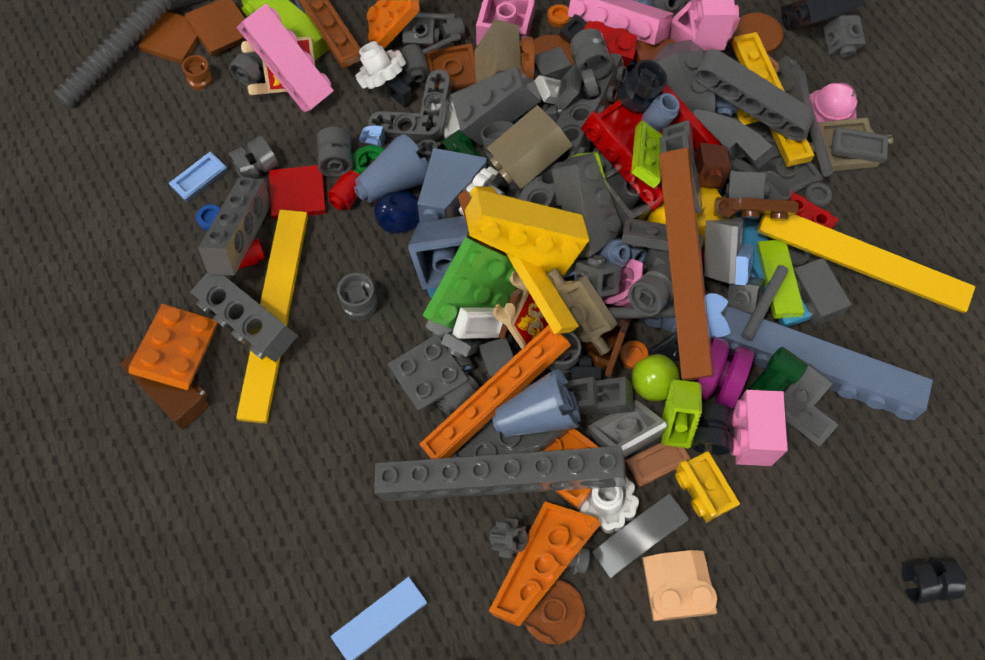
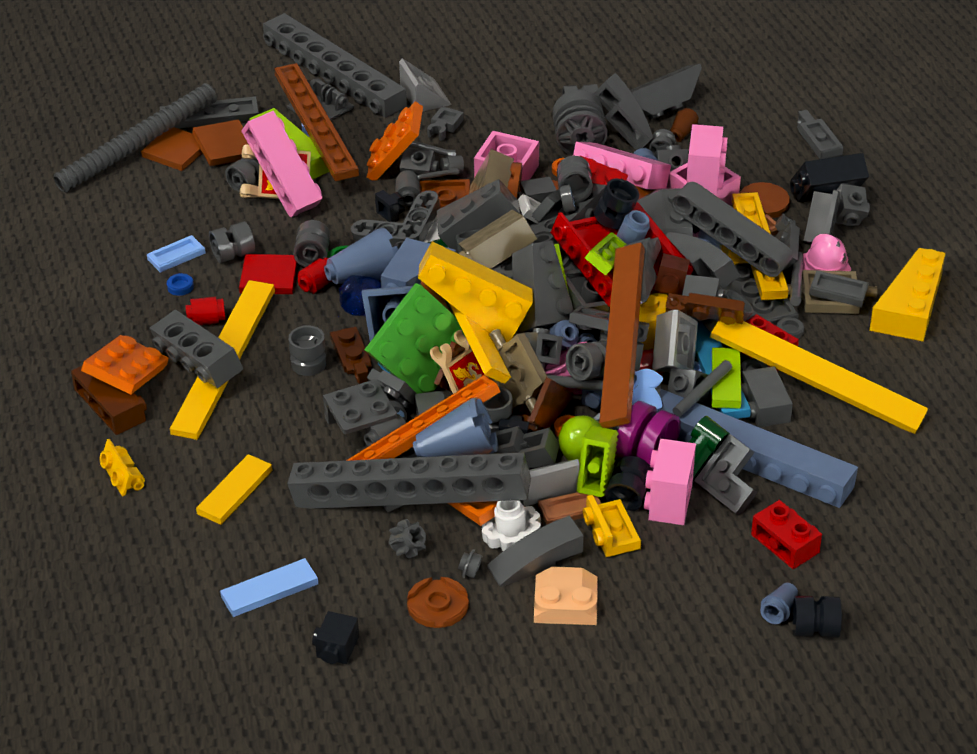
camera: 10 degrees right, 25 degrees down
(197, 72) = (193, 174): dark orange wheel -> none
(200, 490) = (121, 468): none -> yellow hinge
(235, 226) = (204, 280): dark grey brick -> none
(317, 489) = (234, 489): none -> yellow tile
(373, 135) = (351, 235): light blue tile -> none
(378, 65) = (370, 179): white plant -> none
(401, 286) = (351, 353): none -> reddish brown hinge
(476, 324) = (416, 370): white tile -> none
(551, 546) = (435, 554): orange wing -> none
(744, 264) = (688, 355): light blue tile -> none
(825, 56) = (822, 215): none -> dark grey panel
(878, 472) = (786, 534): none -> red brick
(889, 564) = (778, 604): none -> sand blue cone
(929, 146) = (909, 300): none -> yellow wedge

